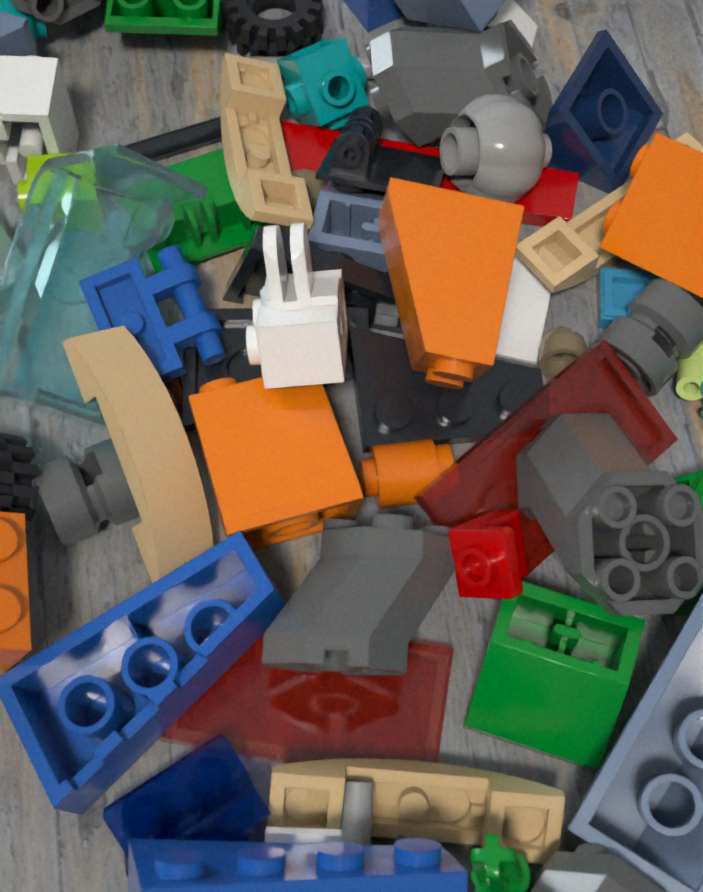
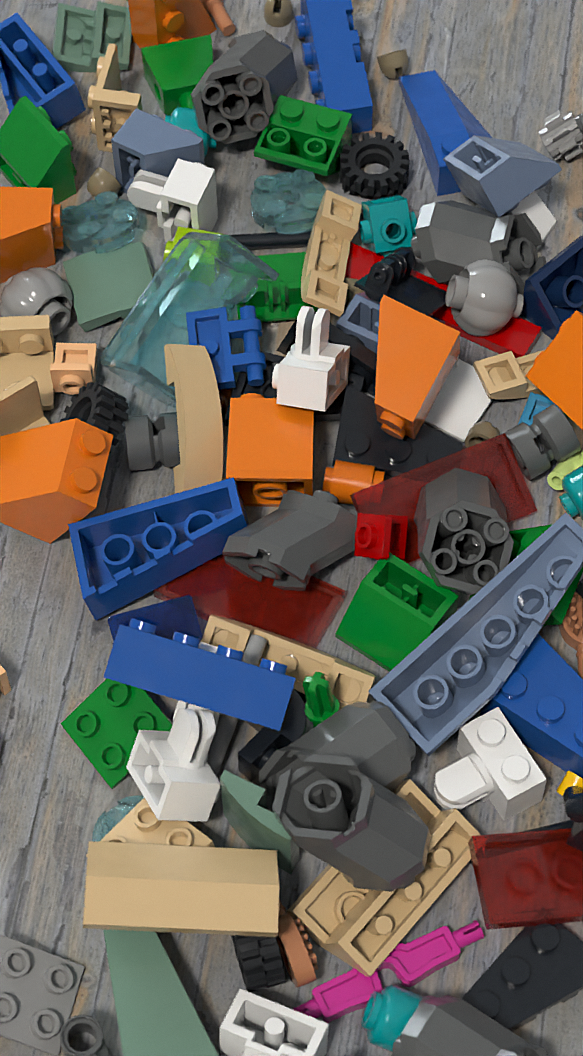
camera: 20 degrees right, 5 degrees down
(148, 80) = (271, 198): none -> clear light blue plate

